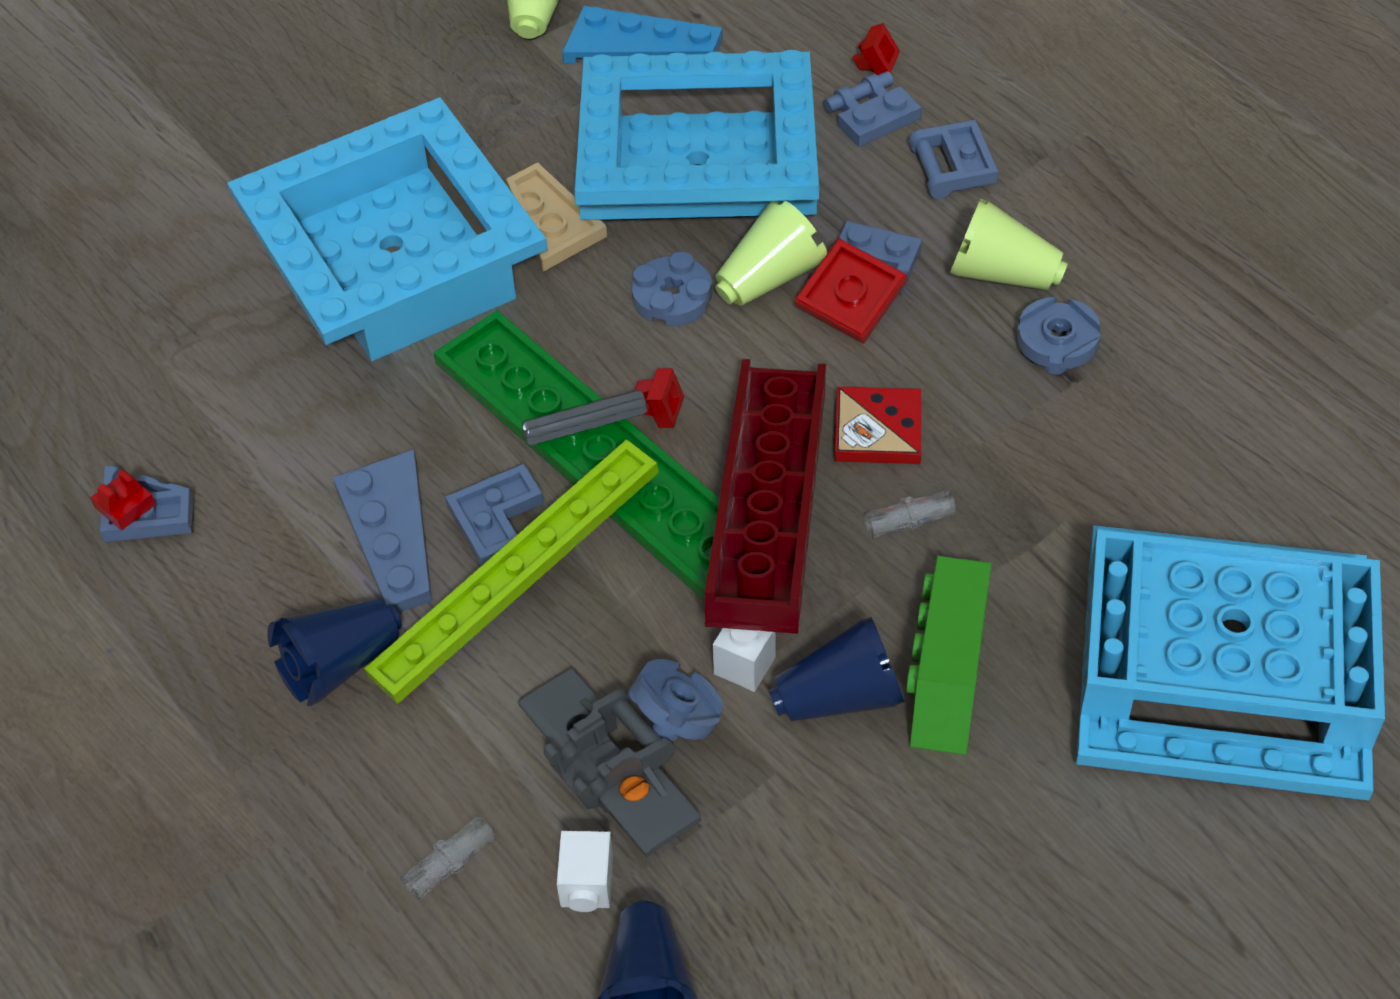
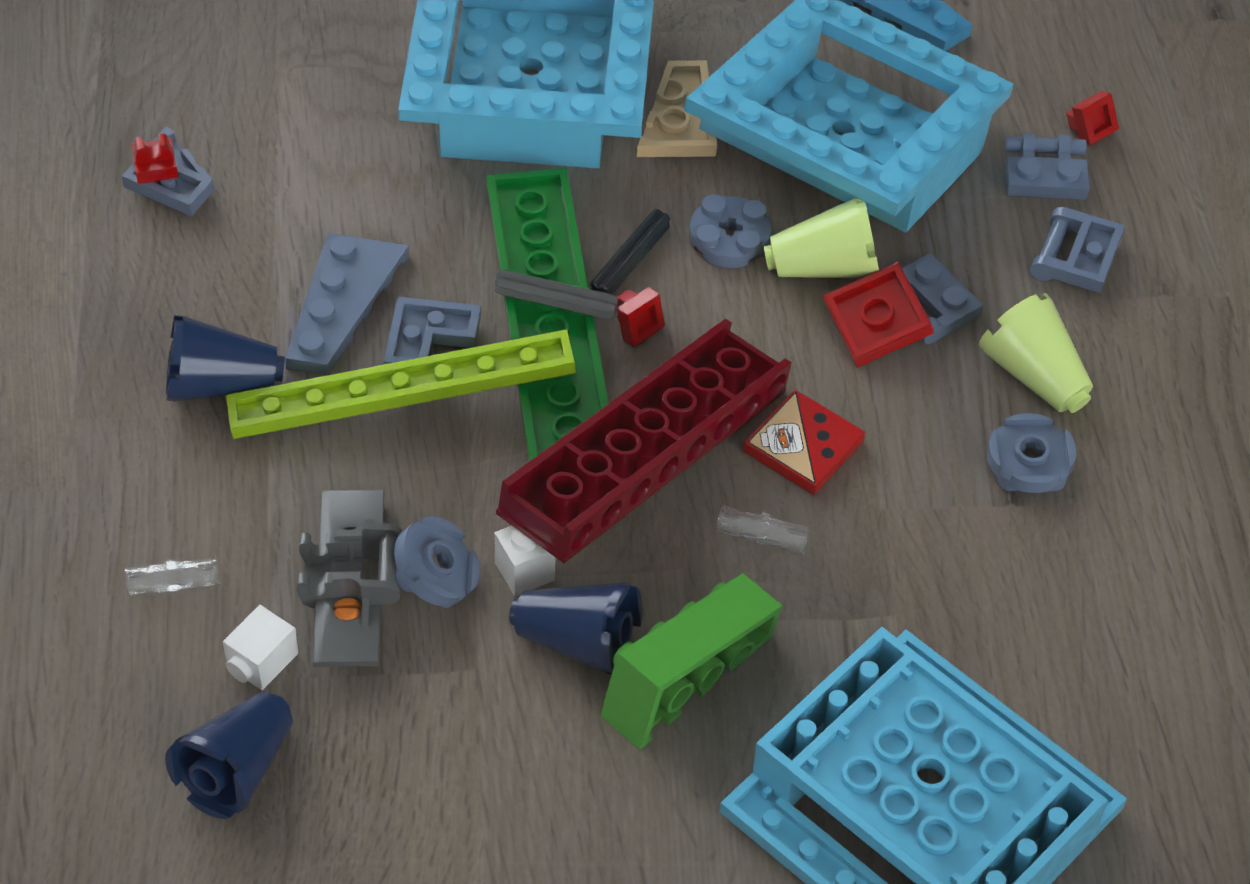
camera: 30 degrees right, 0 degrees up
(607, 350) = (631, 252): none -> black axle

